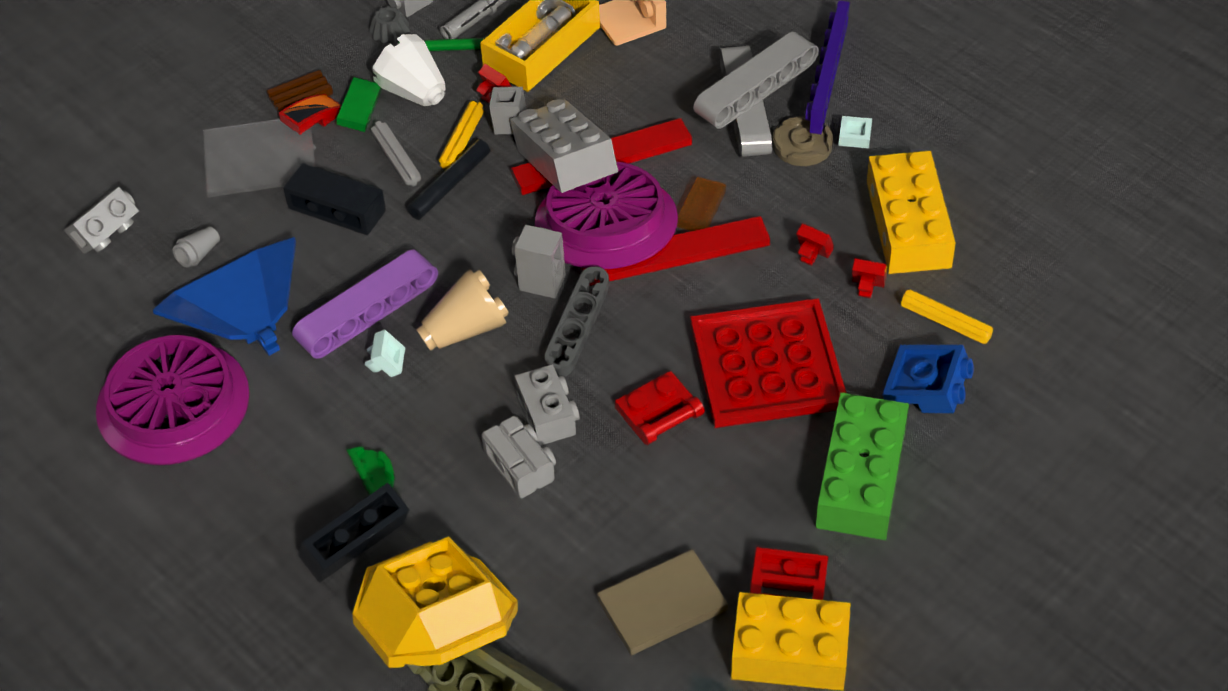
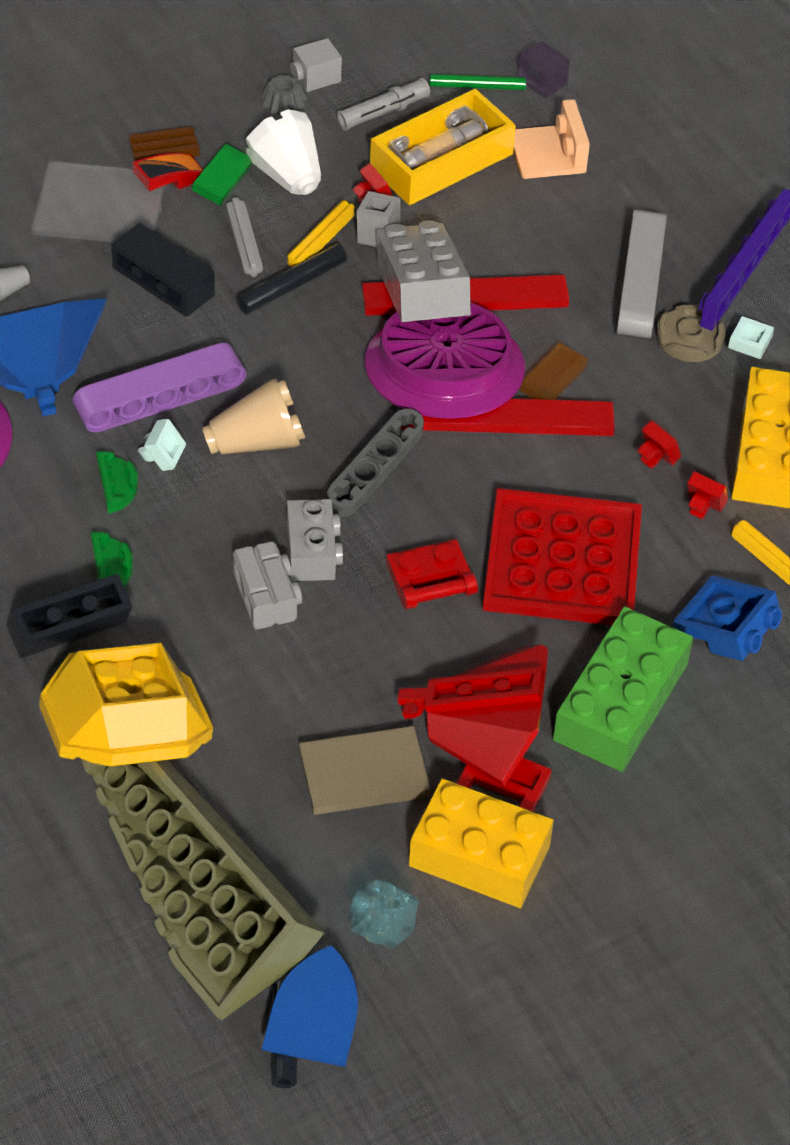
camera: 10 degrees right, 0 degrees up
(355, 396) = (118, 480): none -> green tile
(453, 44) = (342, 133): green bar -> none
(539, 261) = (355, 388): light grey brick -> none
(754, 517) = (486, 711): none -> red panel
(755, 79) = (657, 252): light grey beam -> none

